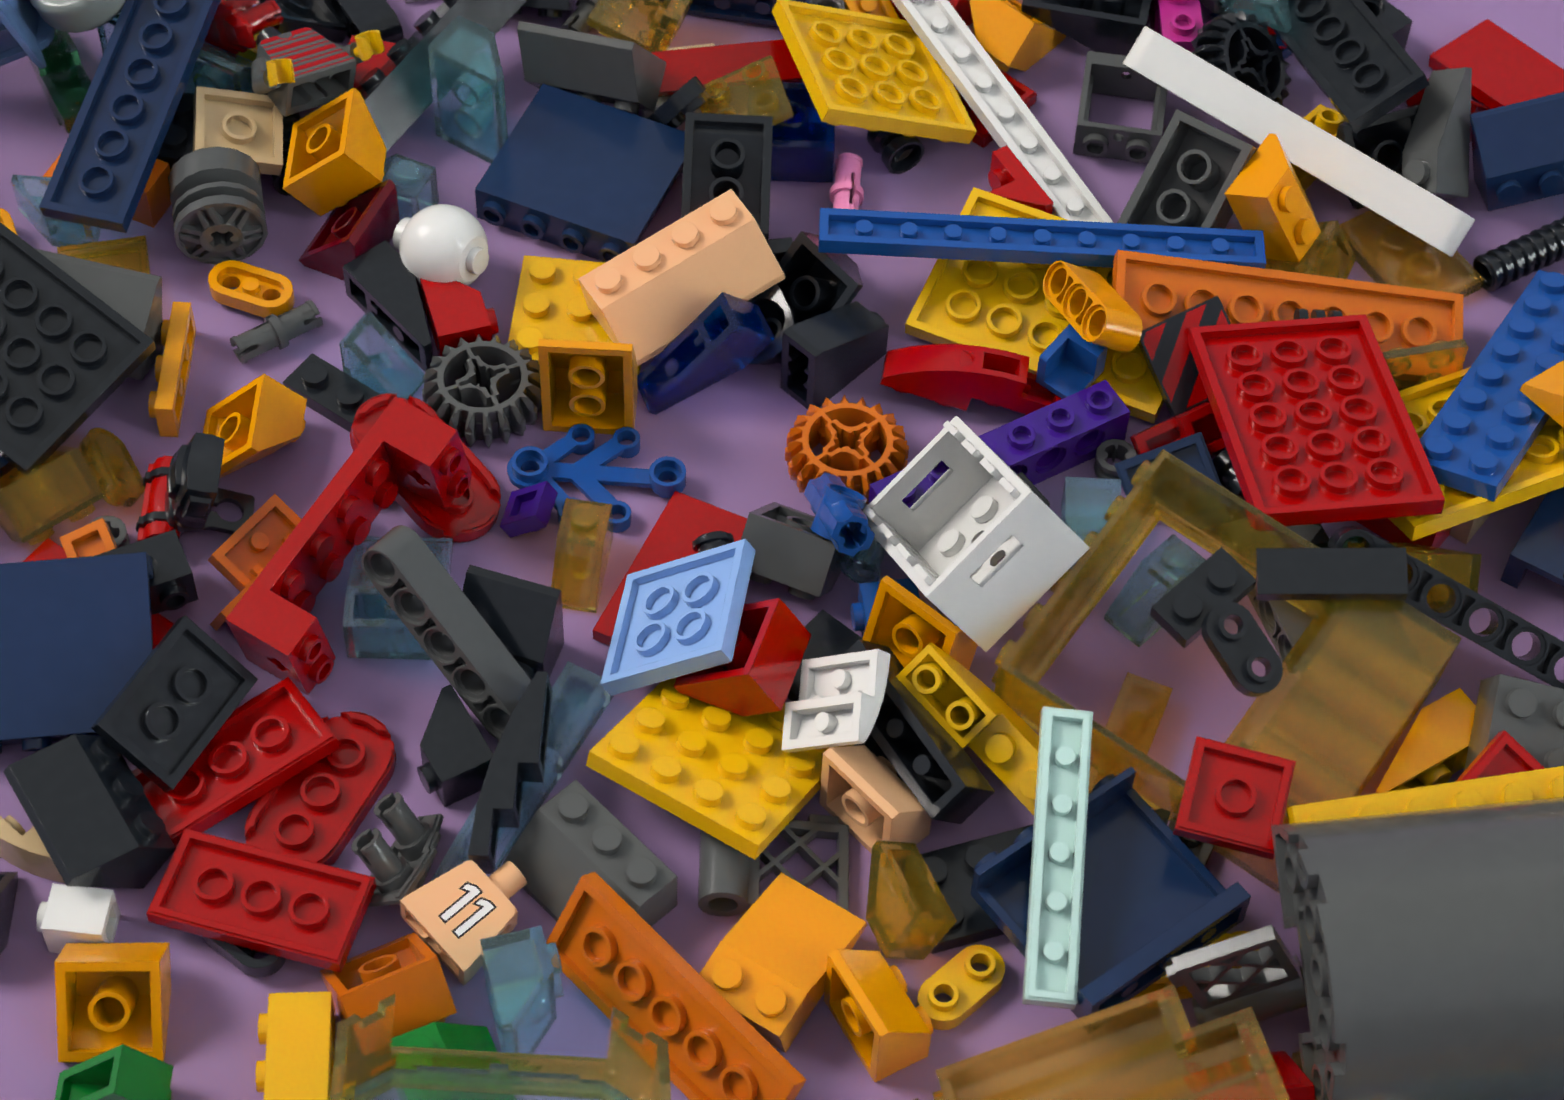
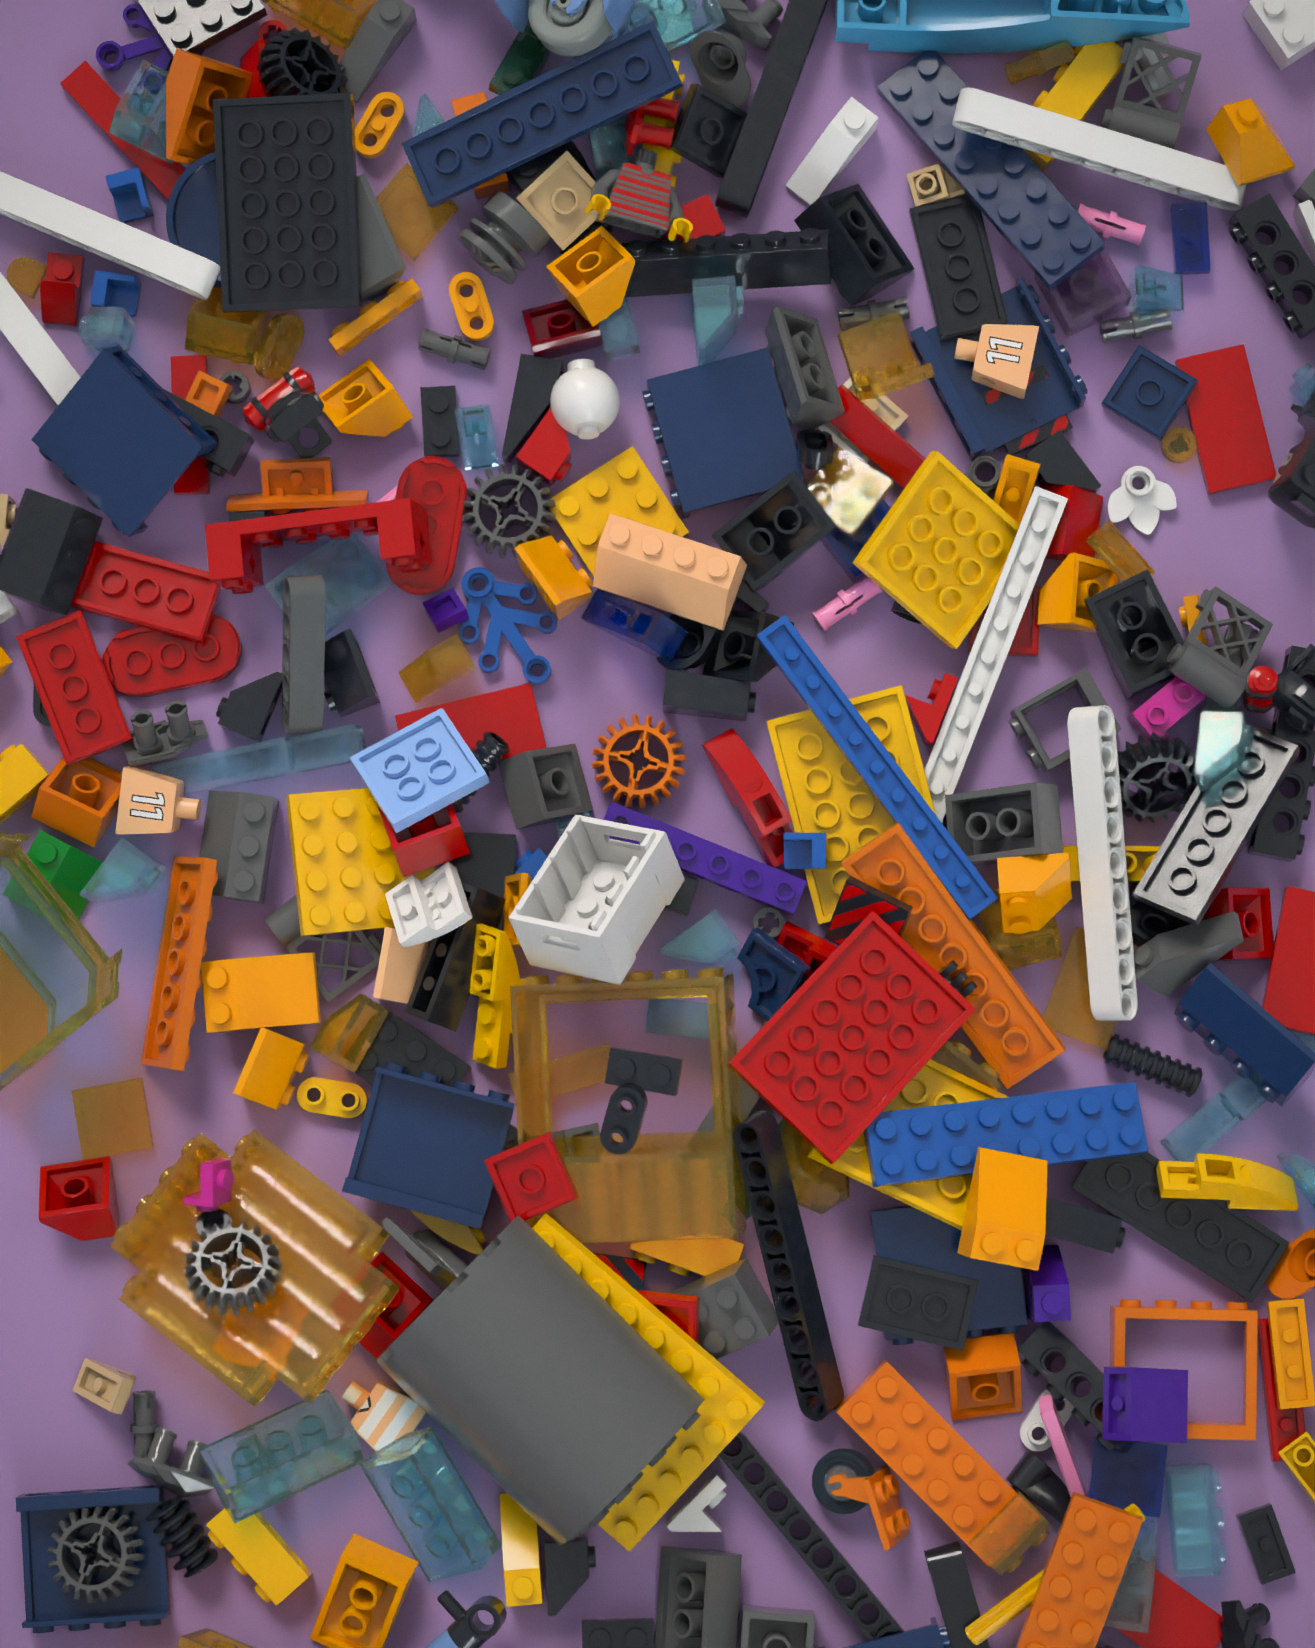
camera: 55 degrees right, 30 degrees up
(174, 703) = (142, 538): black plate -> none
(516, 760) = (262, 755): black slope -> none
(839, 514) = (562, 805): blue piece -> none
(1058, 858) = (420, 1105): light aqua tile -> none
(1092, 307) = (844, 838): light orange beam -> none
(1331, 574) = (714, 1136): black tile -> none

